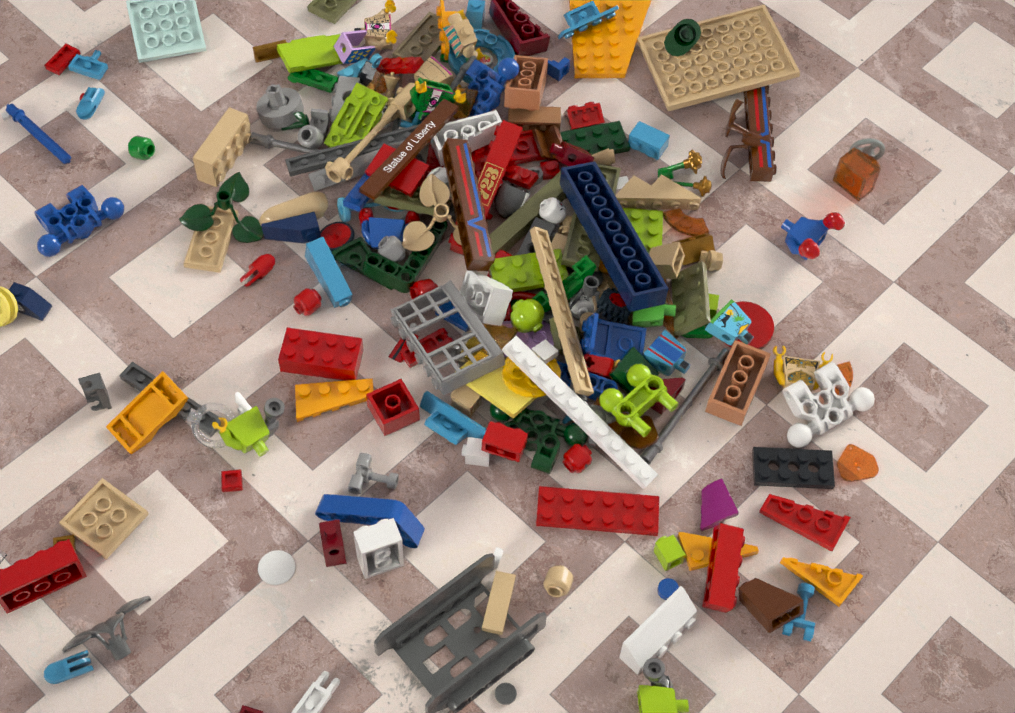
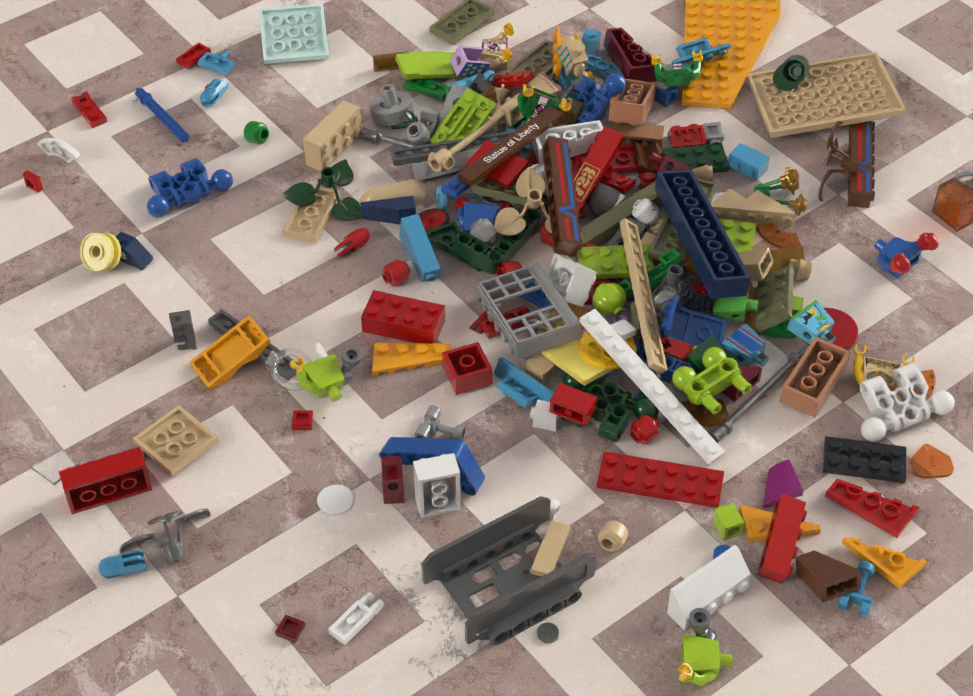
camera: 10 degrees right, 10 degrees down
(570, 45) = (678, 74): none -> green torso
(610, 110) = (713, 133): none -> light grey bracket

